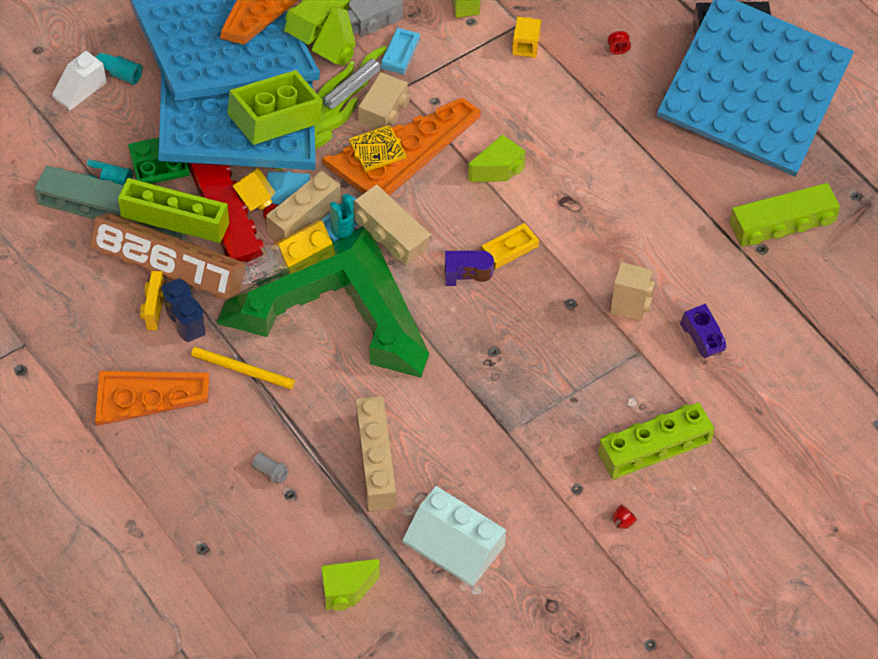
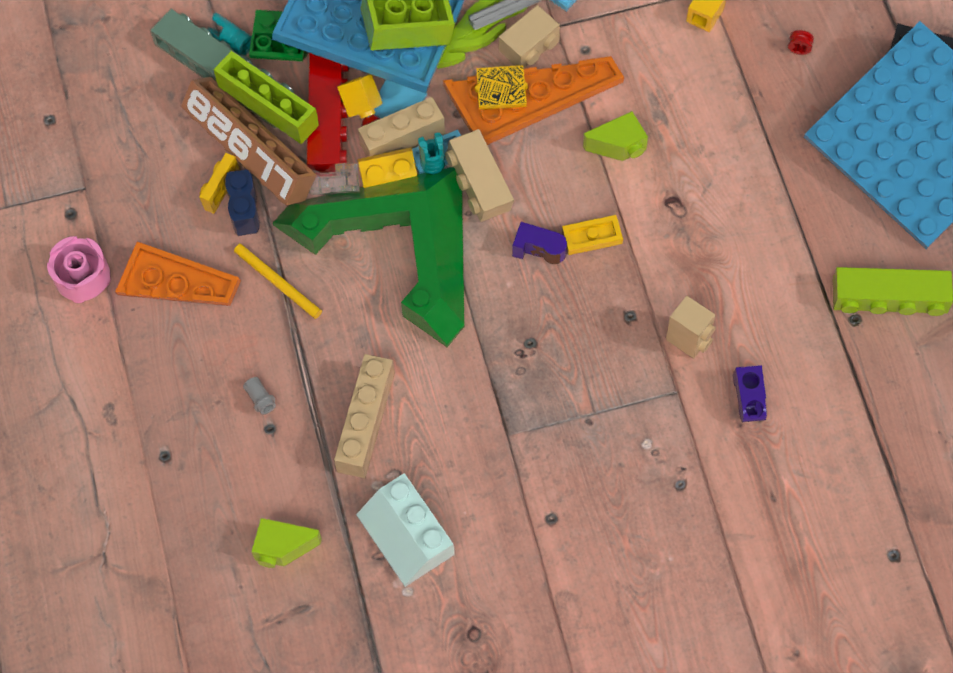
camera: 25 degrees right, 10 degrees up
(54, 410) = (78, 269): none -> bright pink brick
(625, 516) = (585, 566): red hinge -> none
(655, 440) = (650, 495): lime brick -> none

